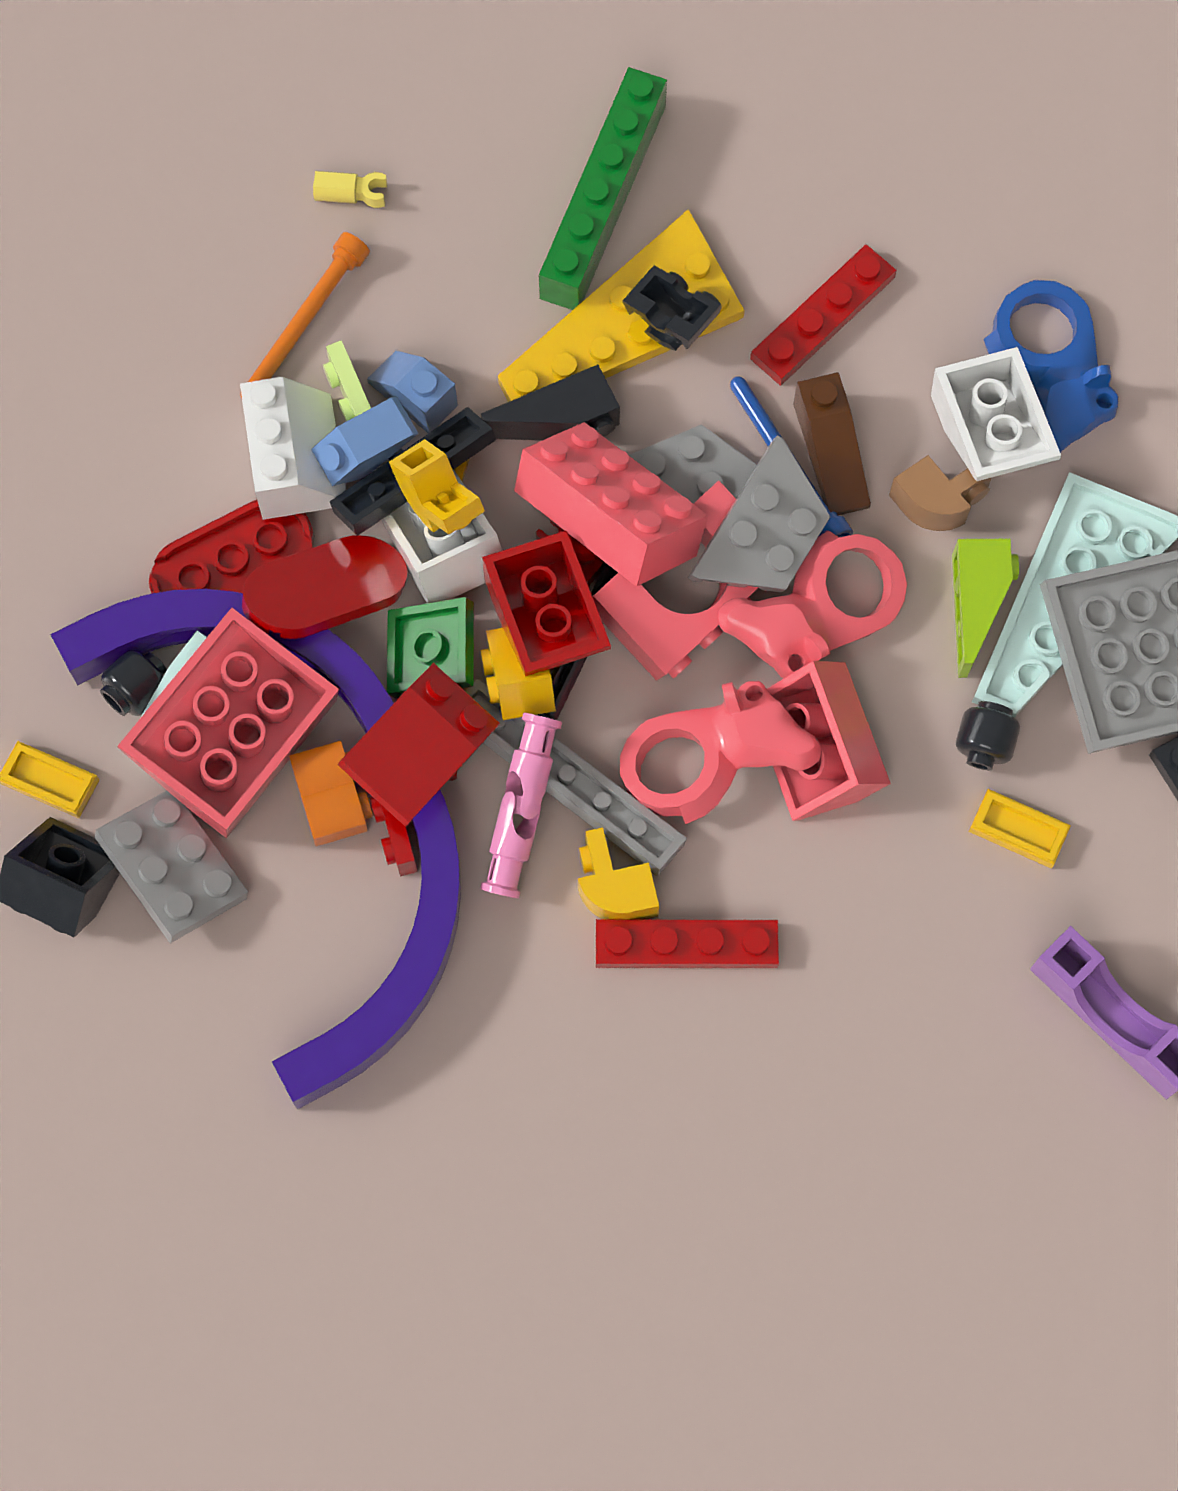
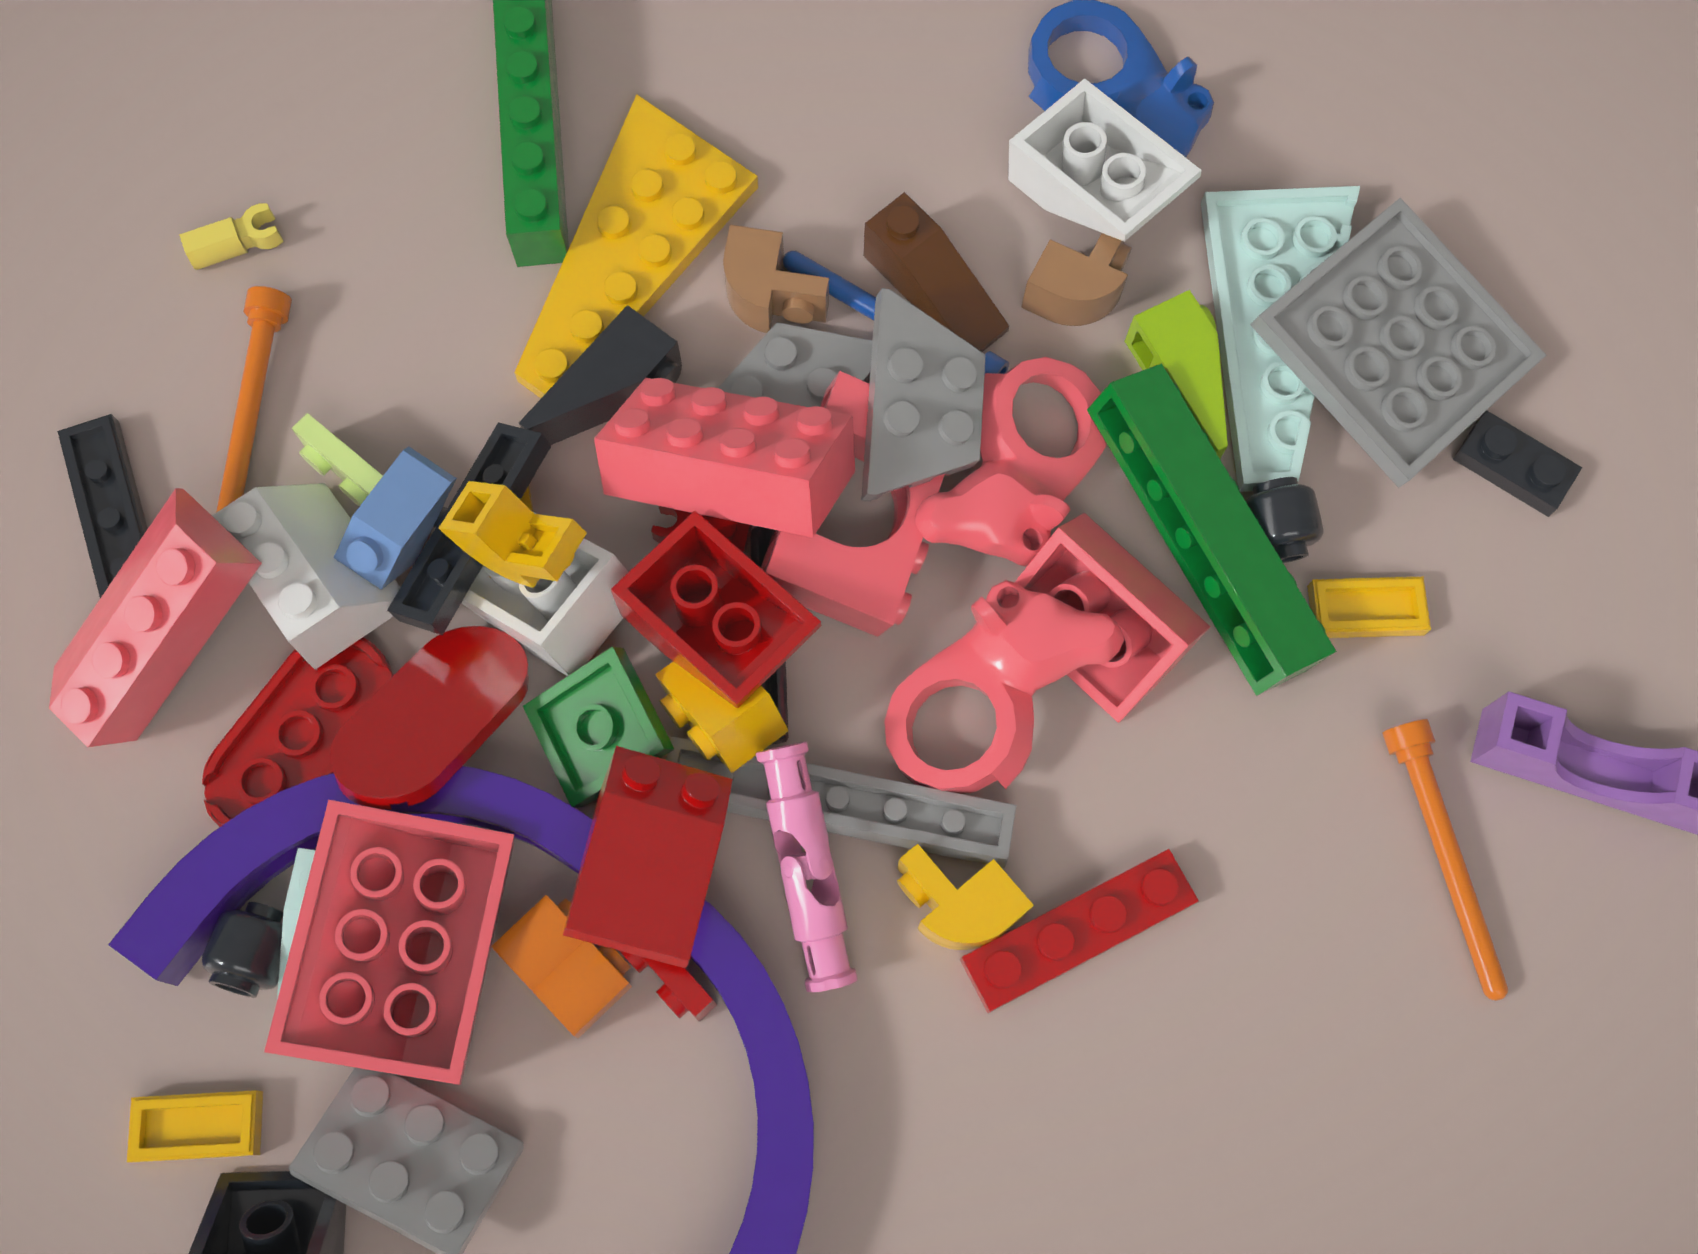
camera: 30 degrees left, 0 degrees up
(171, 437) = (149, 624): none -> coral slope
(177, 356) = (103, 494): none -> black tile
(419, 386) = (428, 422): medium blue slope -> none
(670, 310) = (680, 208): black cylinder -> none
(702, 393) = (760, 287): none -> medium nougat brick
(823, 314) = (844, 145): red plate -> none
(928, 715) = (1210, 529): none -> green brick
(991, 936) = (1412, 747): none -> orange piece

